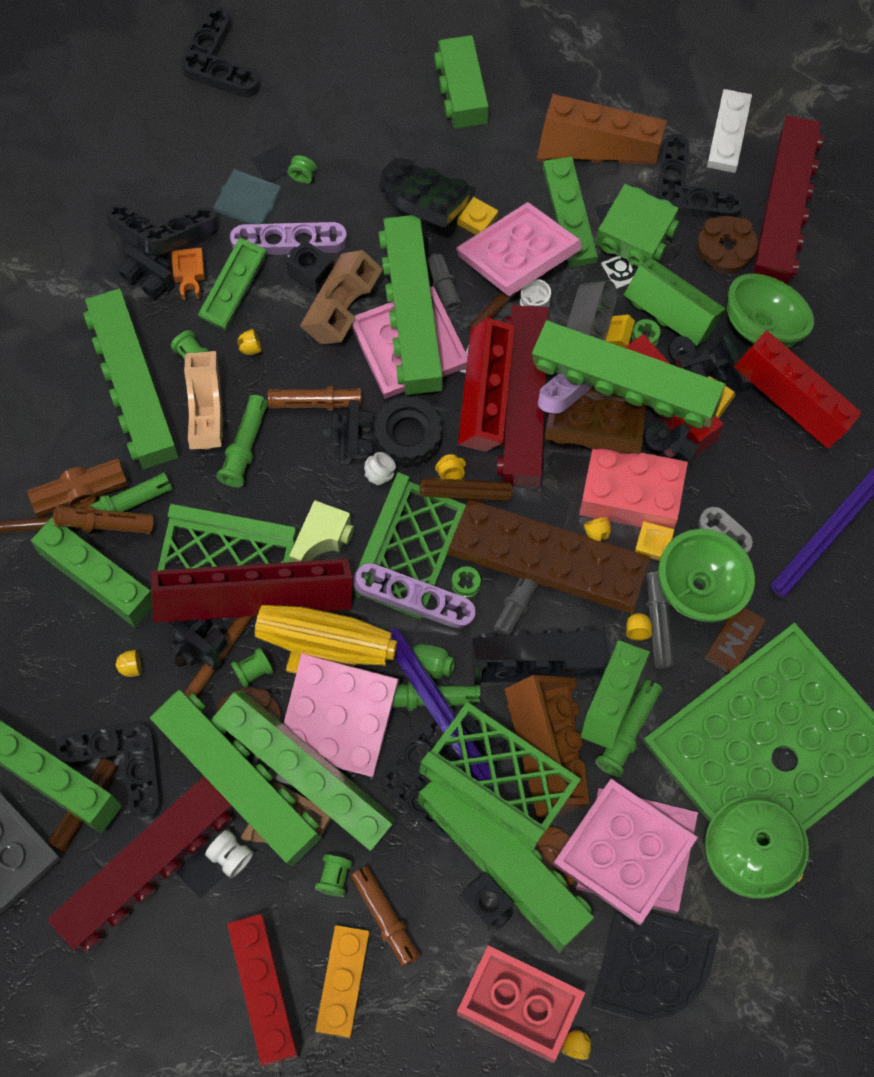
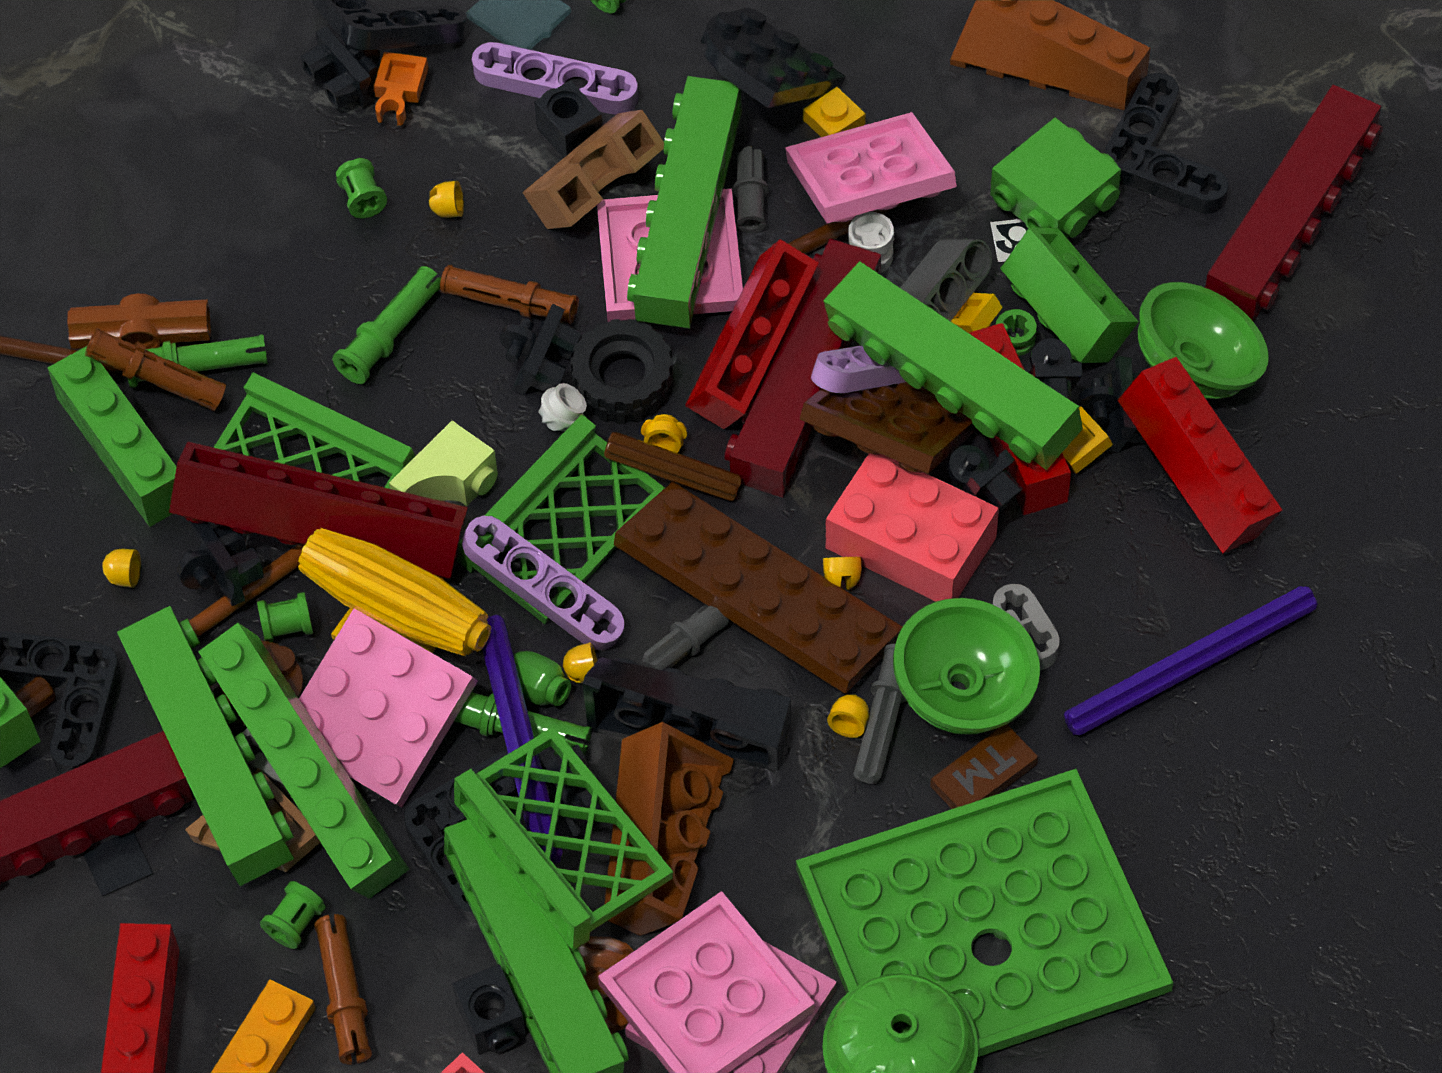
camera: 20 degrees right, 10 degrees down
(131, 379) = (264, 204): bright green brick -> none
(204, 400) = (354, 254): light nougat arch -> none
(229, 853) = (162, 846): white wheel -> none
(232, 283) = (452, 116): bright green tile -> none
(456, 581) = (634, 578): bright green bush -> none
(456, 643) = (579, 661): none -> yellow hinge
(570, 207) = (971, 140): bright green plate -> none
(614, 759) = (767, 856): bright green pin -> none
(615, 694) = (772, 785): bright green brick -> none
(653, 540) = (911, 598): yellow plate -> none
(728, 228) = (1182, 219): reddish brown plate -> none
(729, 131) = (1248, 90): white plate -> none

